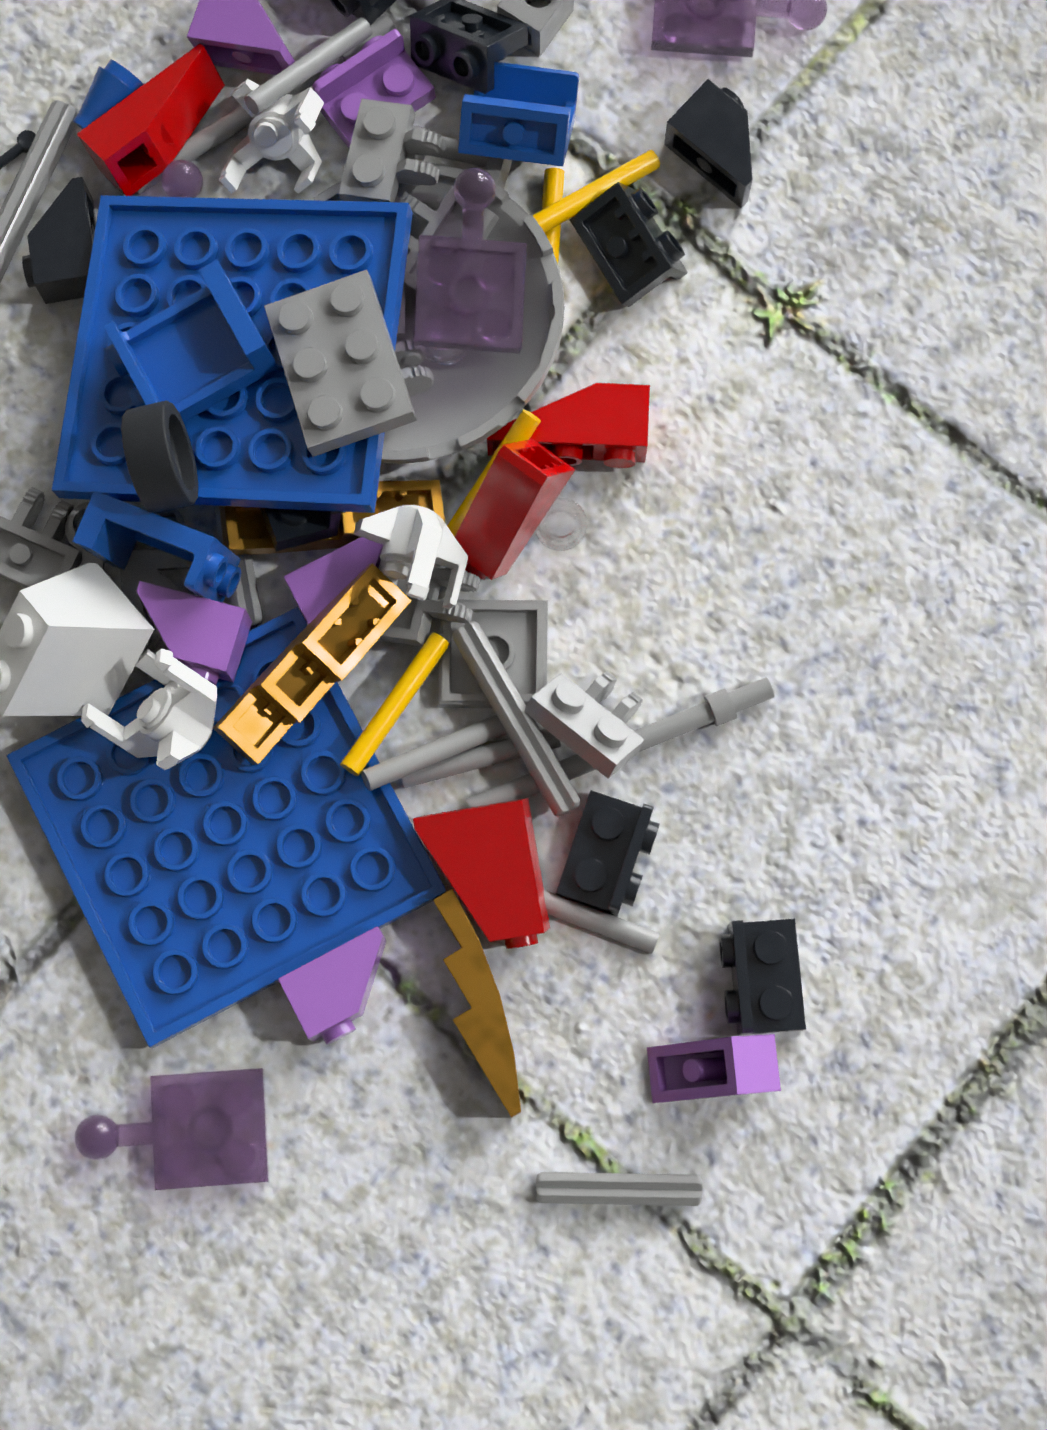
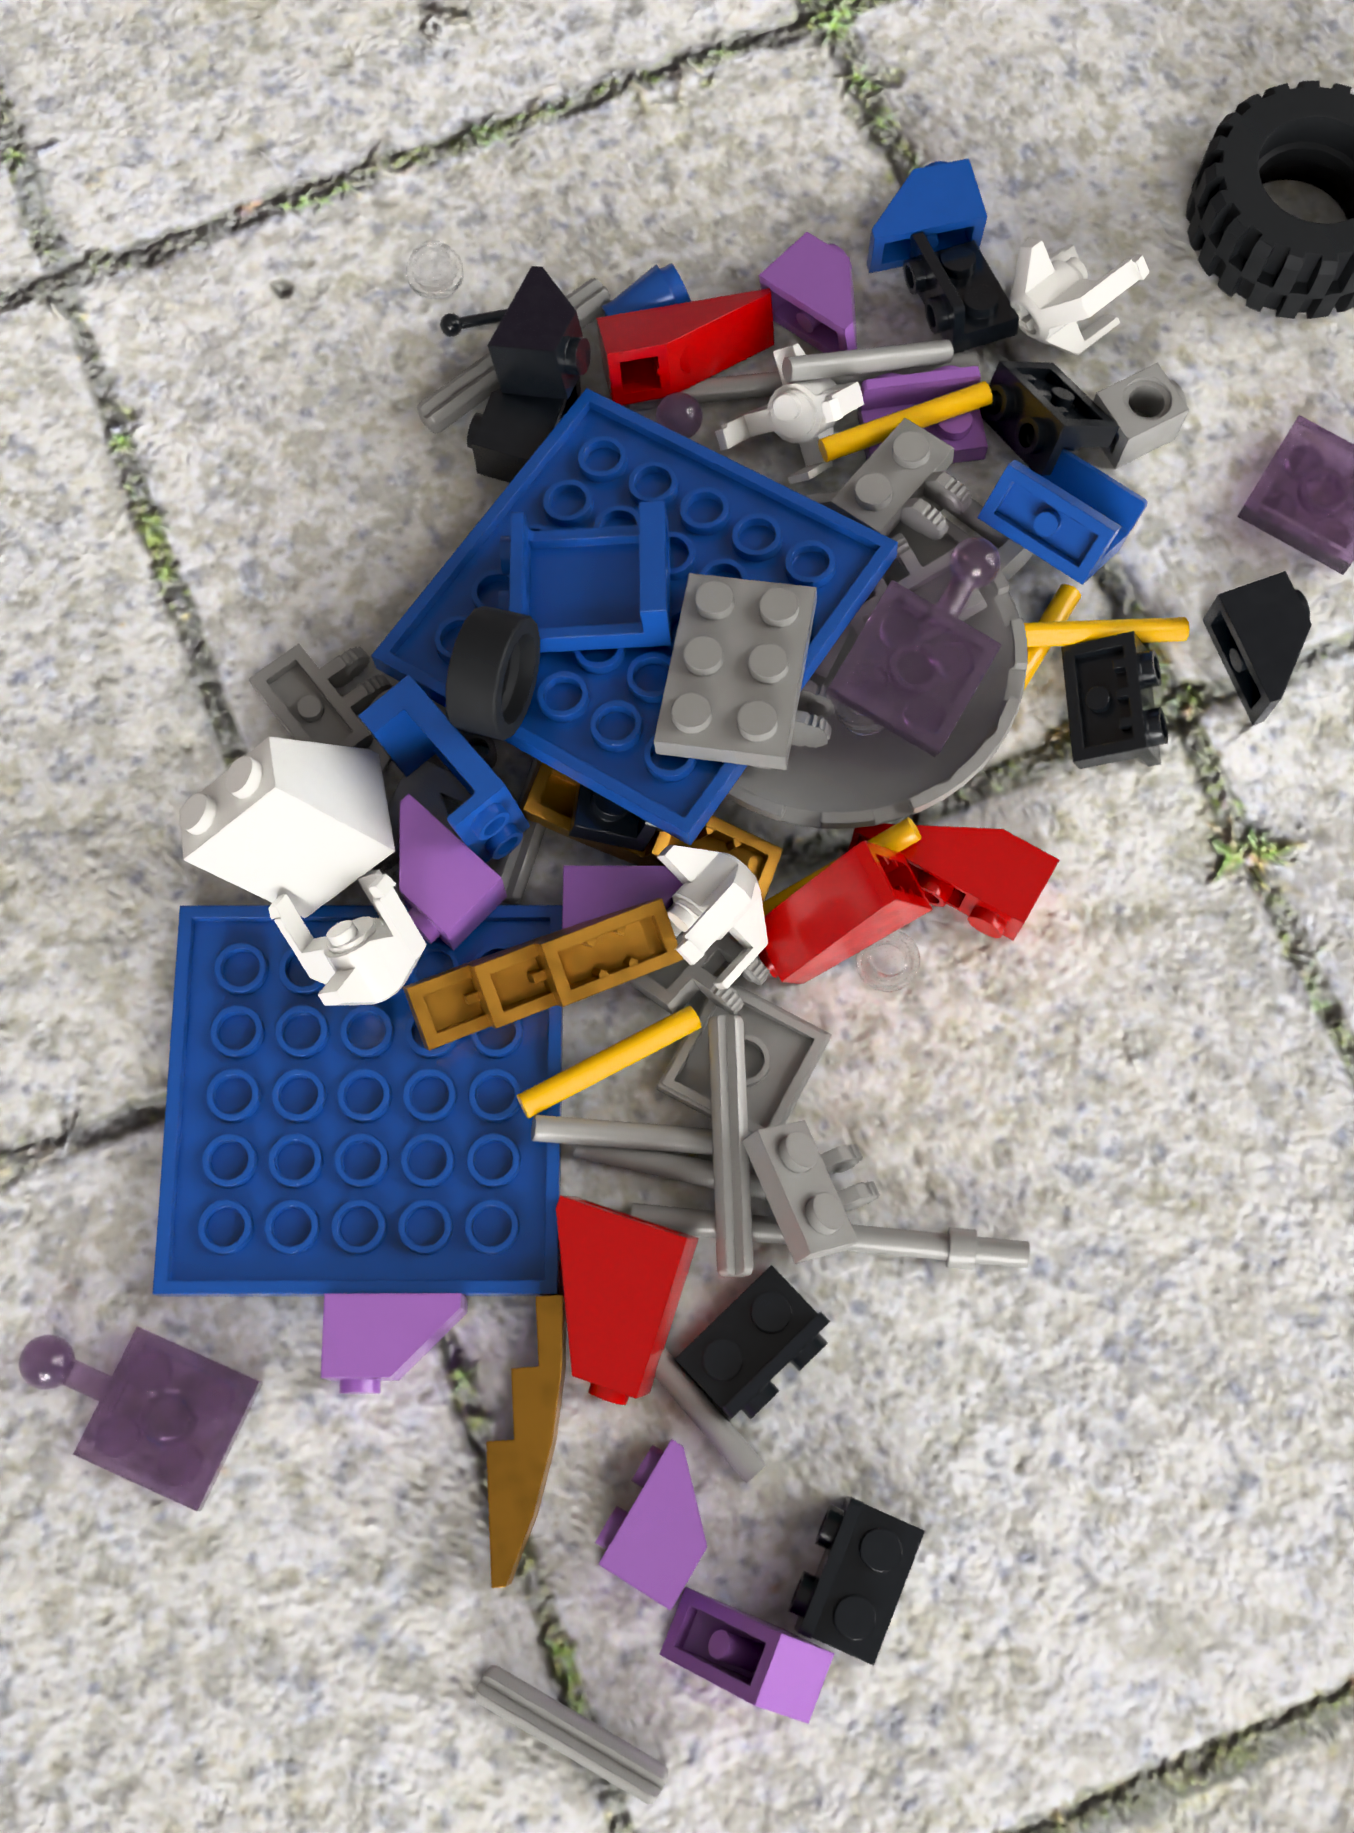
camera: 25 degrees right, 5 degrees down
(46, 176) = (539, 341): none -> black slope
(371, 89) = (922, 414): none -> yellow bar
(611, 1015) = (662, 1533): none -> medium lavender slope

